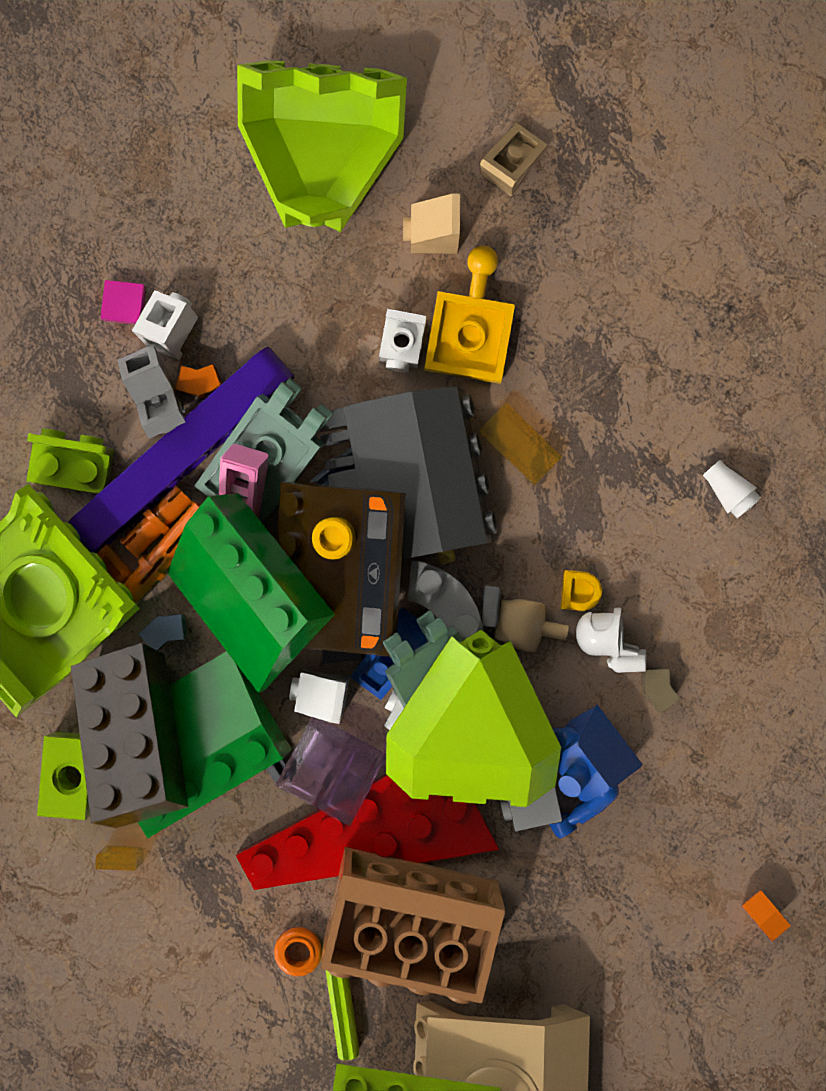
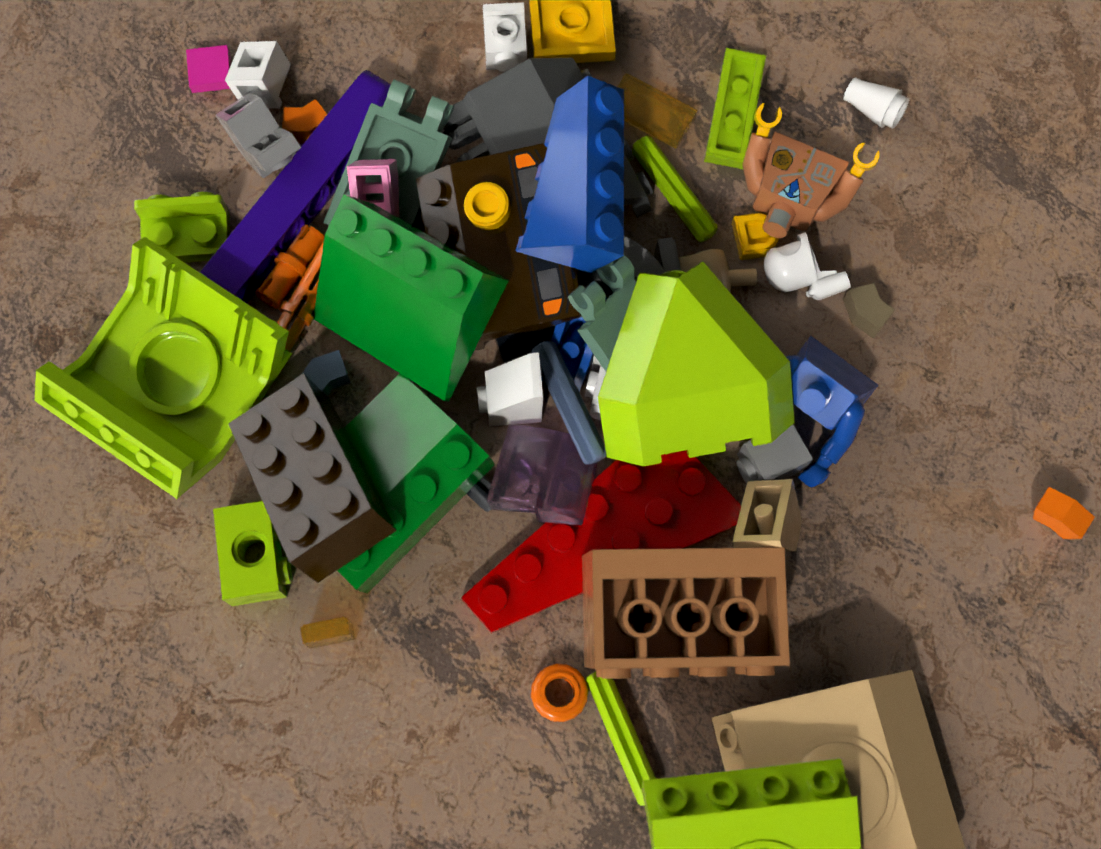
camera: 20 degrees left, 15 degrees down
(366, 717) = (570, 403): none -> sand blue axle
(421, 539) = (581, 182): none -> blue wedge
(505, 869) = (769, 516): none -> tan slope
(519, 528) = (674, 188): none -> lime axle
(599, 459) = (735, 108): none -> lime tile
(631, 554) = (796, 180): none -> nougat torso

